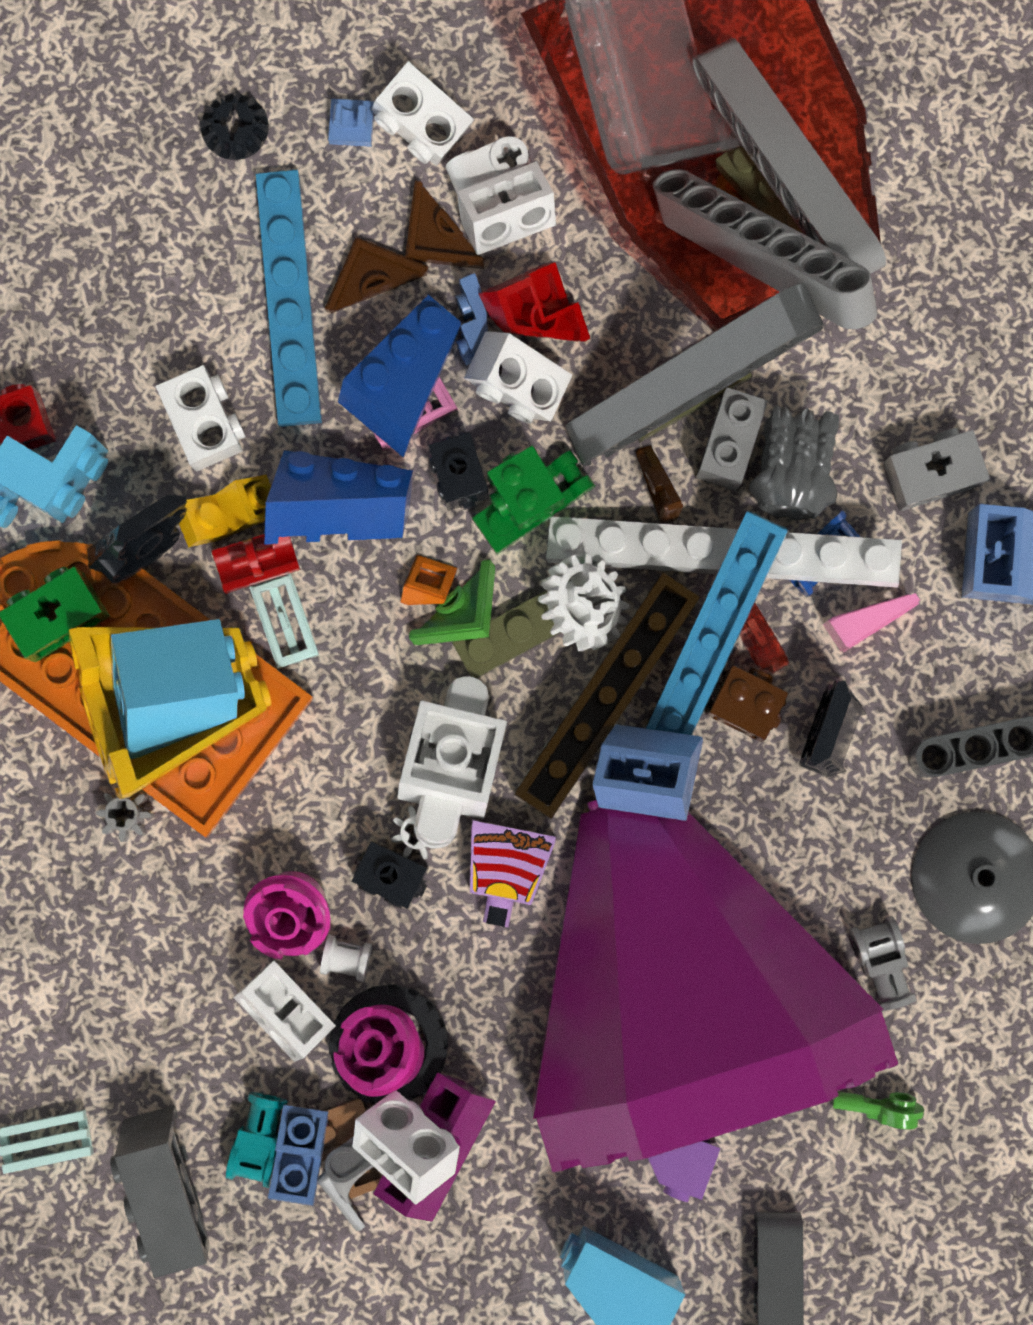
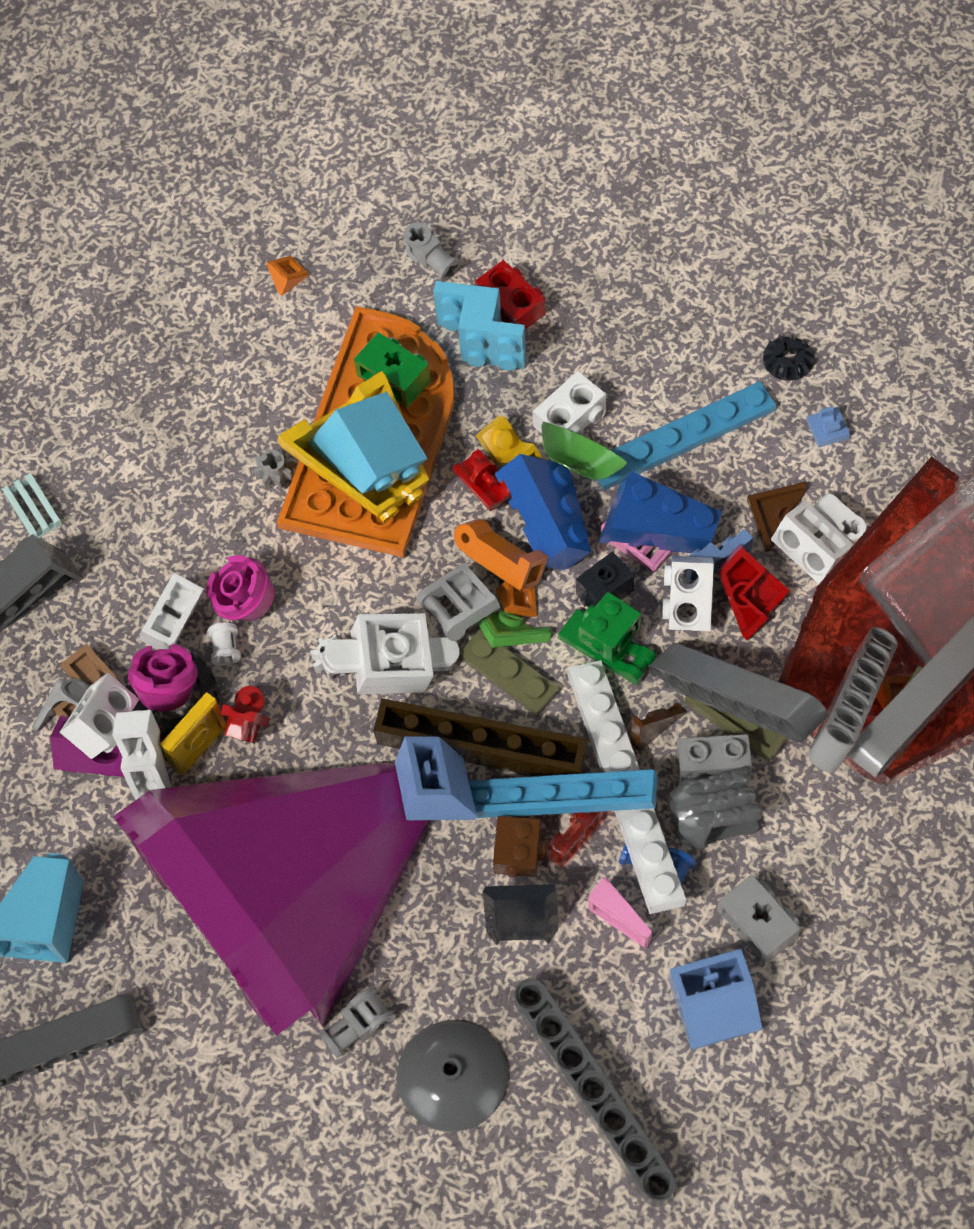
camera: 75 degrees right, 20 degrees down
(138, 539) = (466, 399): black slope -> none
(255, 1146) = (73, 635): teal connector -> none
(289, 415) = (572, 448): none -> bright green piece
(296, 655) = (446, 536): light aqua tile -> none
(298, 1155) = (76, 661): medium blue slope -> none
(366, 581) = (499, 555): none -> orange leg
(371, 272) = (724, 478): reddish brown tile -> none
(403, 890) = (292, 648): black head -> none
(408, 640) = (467, 595): none -> light grey plate
(430, 106) = (858, 465): white brick -> none
(462, 965) = (245, 718): none -> red hips
(464, 1036) = (193, 734): none -> yellow tile
(479, 1110) = (141, 752): none -> white slope
(506, 867) = (329, 724): torso -> none
(583, 602) = (538, 686): white gear -> none
(686, 1169) = (154, 924): medium lavender slope -> none
(897, 1111) = (244, 1075): bright green plate -> none

